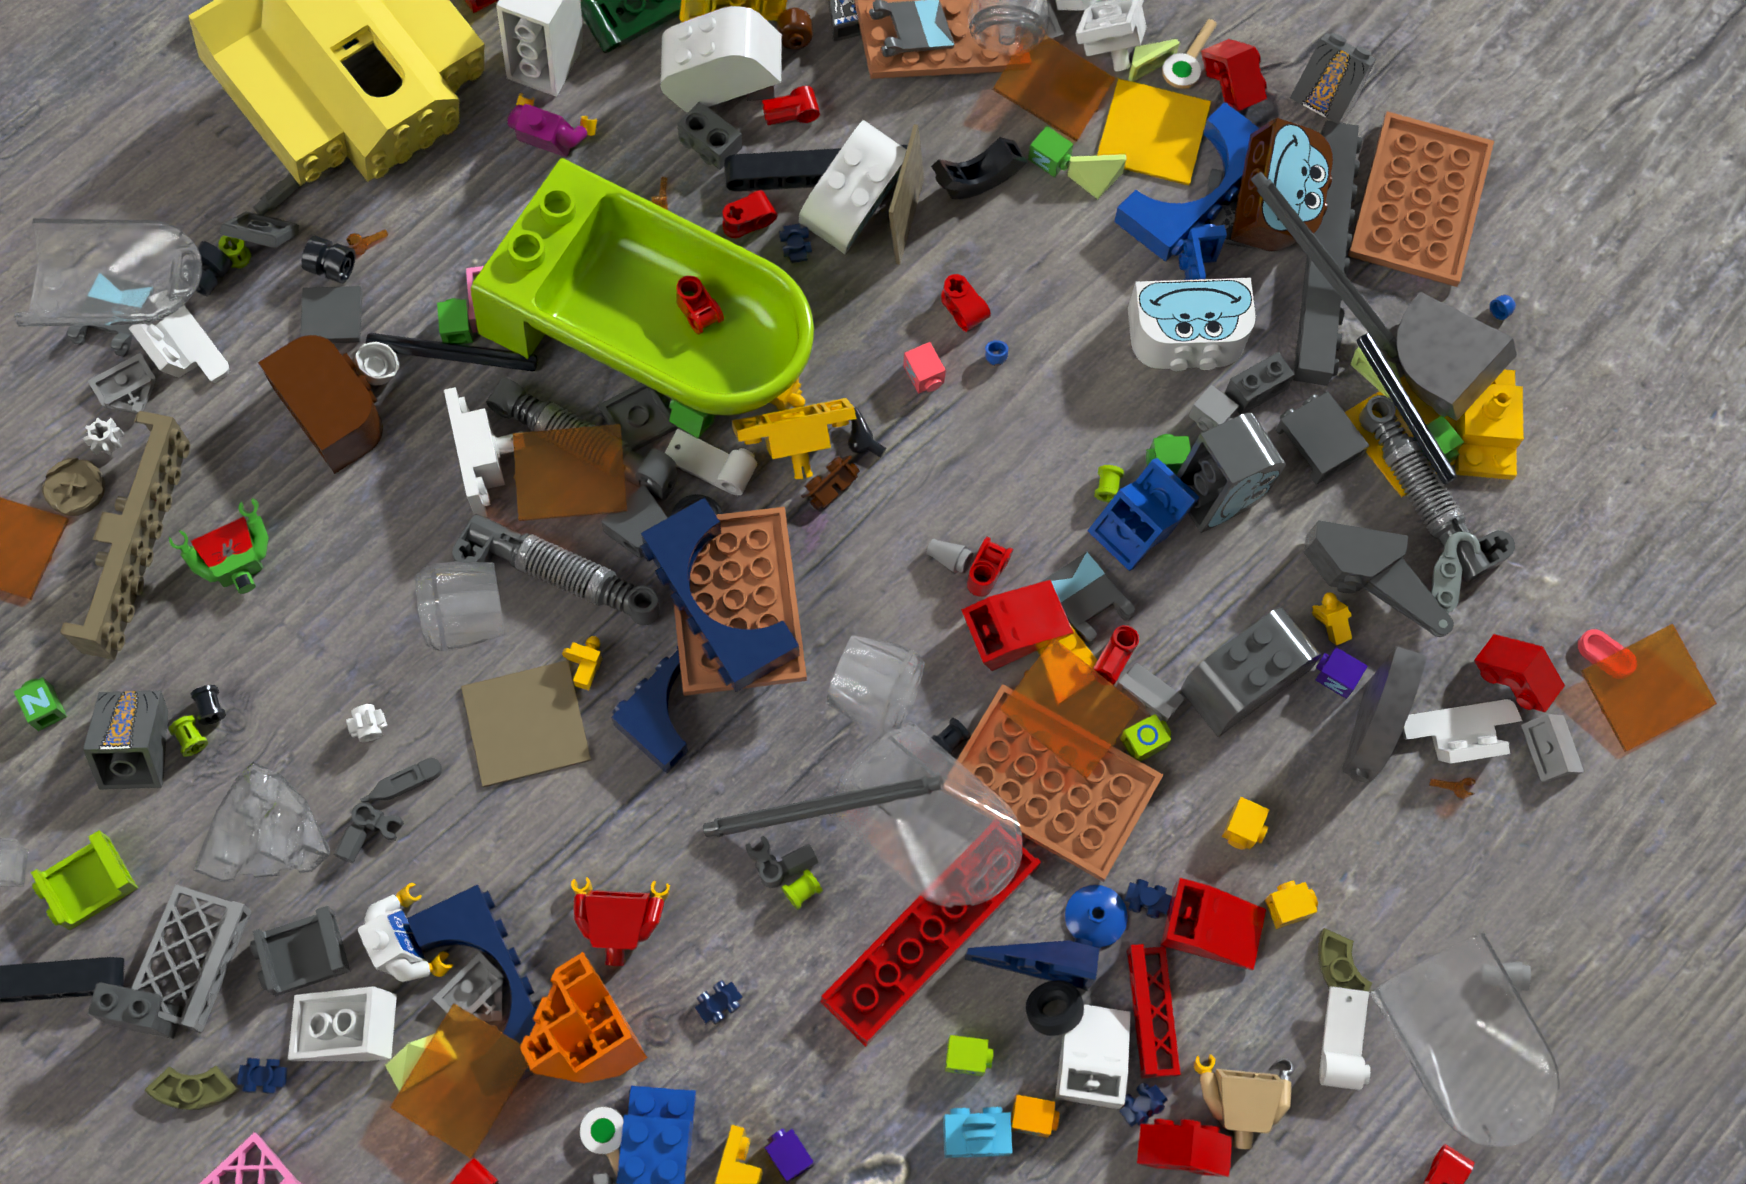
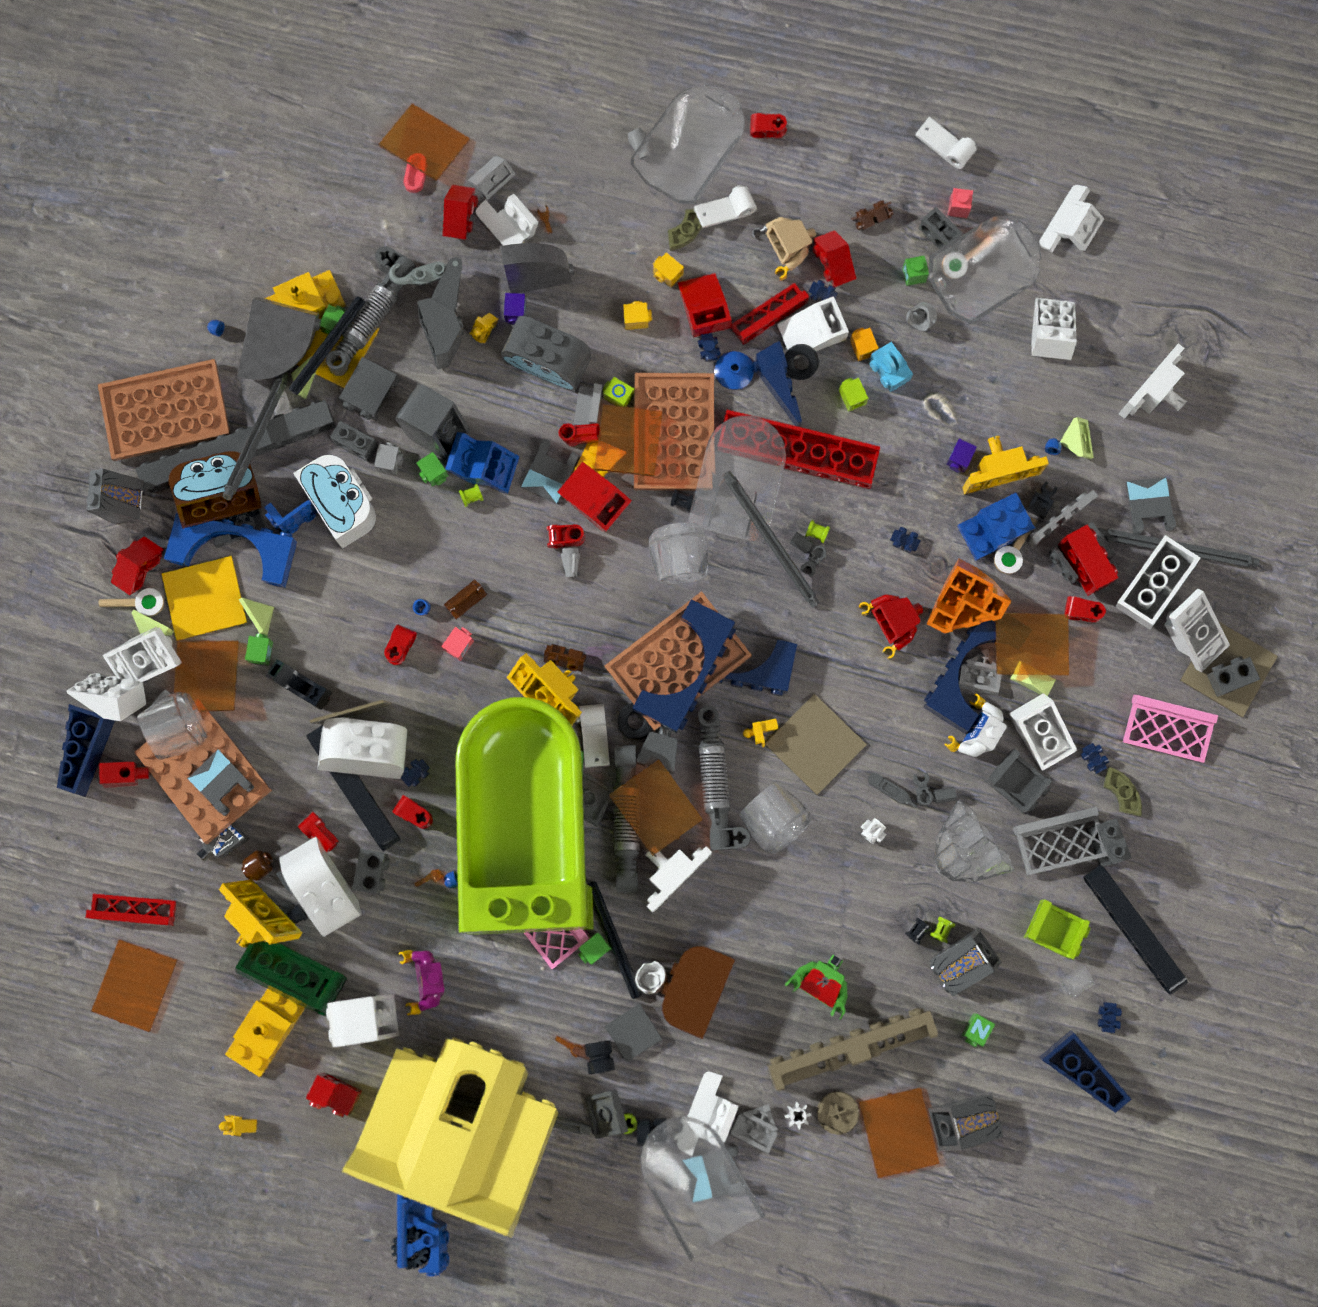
camera: 115 degrees left, 10 degrees up
(699, 309) = (503, 795): red piece -> none
(862, 437) = (525, 649): black animal -> none
(976, 407) = (465, 599): none -> reddish brown hinge

